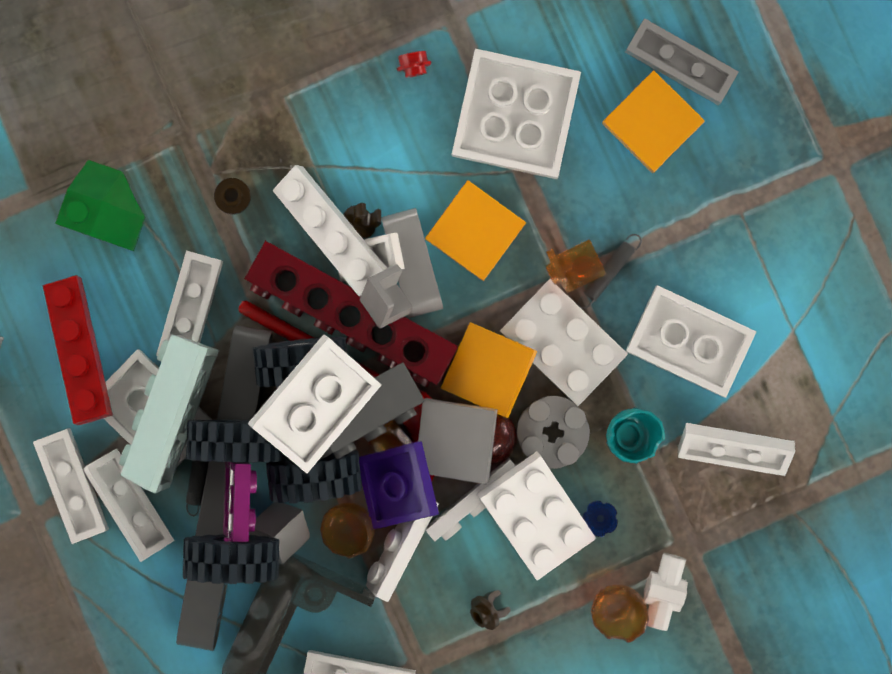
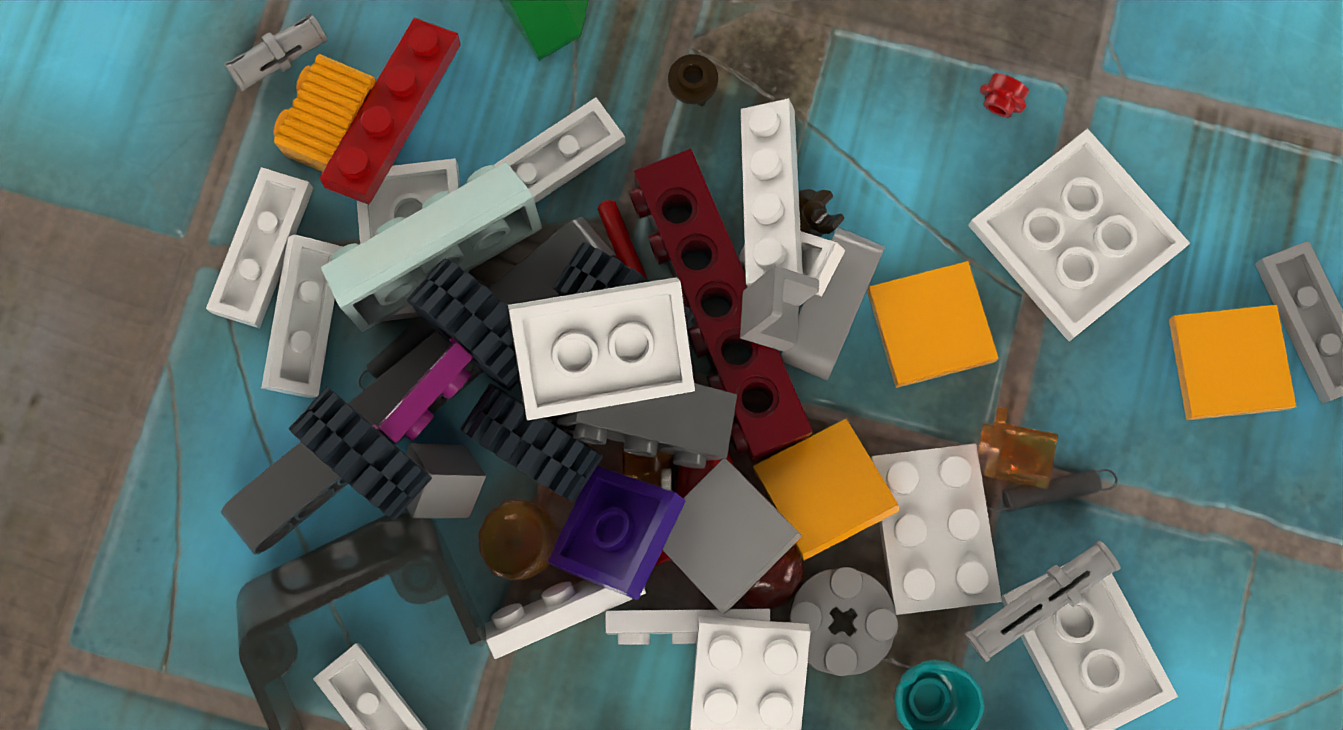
camera: 40 degrees right, 10 degrees down
(40, 383) = (322, 112): none -> light orange brick
(649, 338) = (1043, 600): none -> light grey pin

